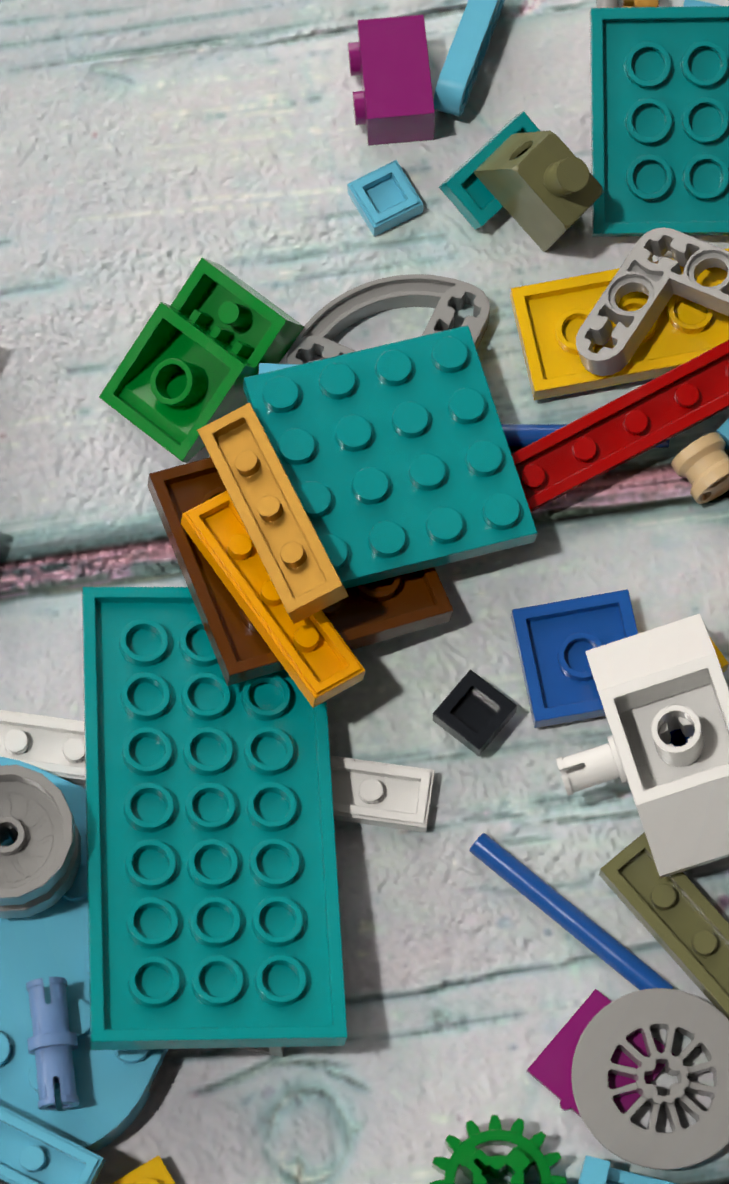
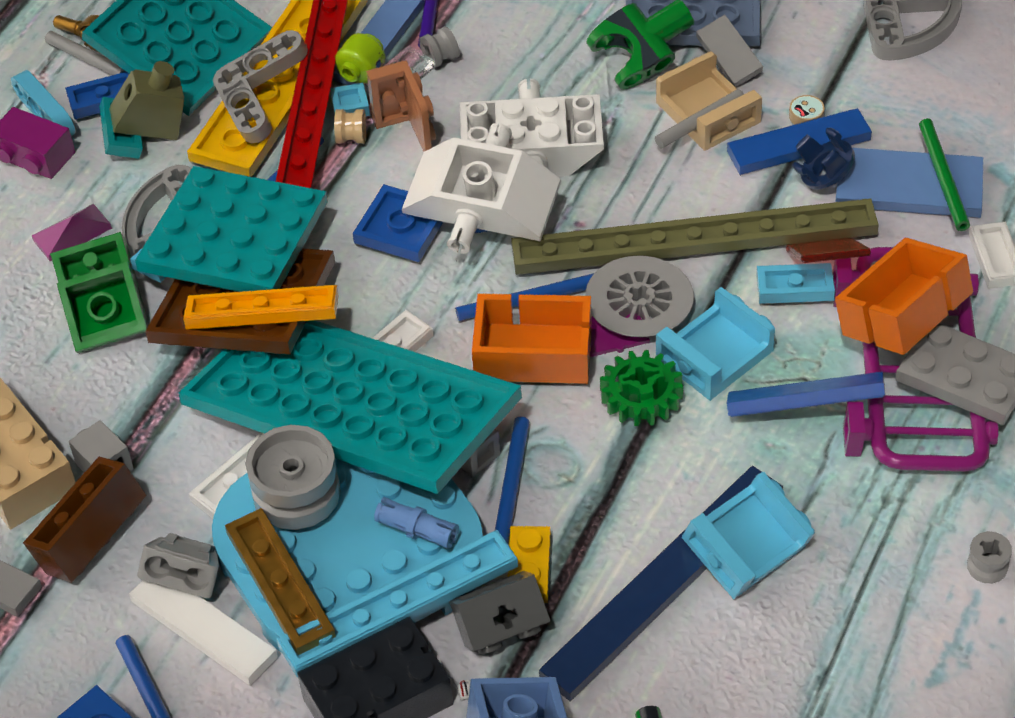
camera: 55 degrees left, 20 degrees down
(236, 1106) = (512, 477): none -> blue bar
(272, 513) = (220, 274): plate -> none
(293, 241) = (72, 231): none -> magenta slope
(385, 198) = (87, 183): medium azure tile -> none
(472, 990) = (545, 347): none -> orange piece
(474, 712) = (391, 278): black plate -> none
(544, 96) = (87, 96): none -> blue plate

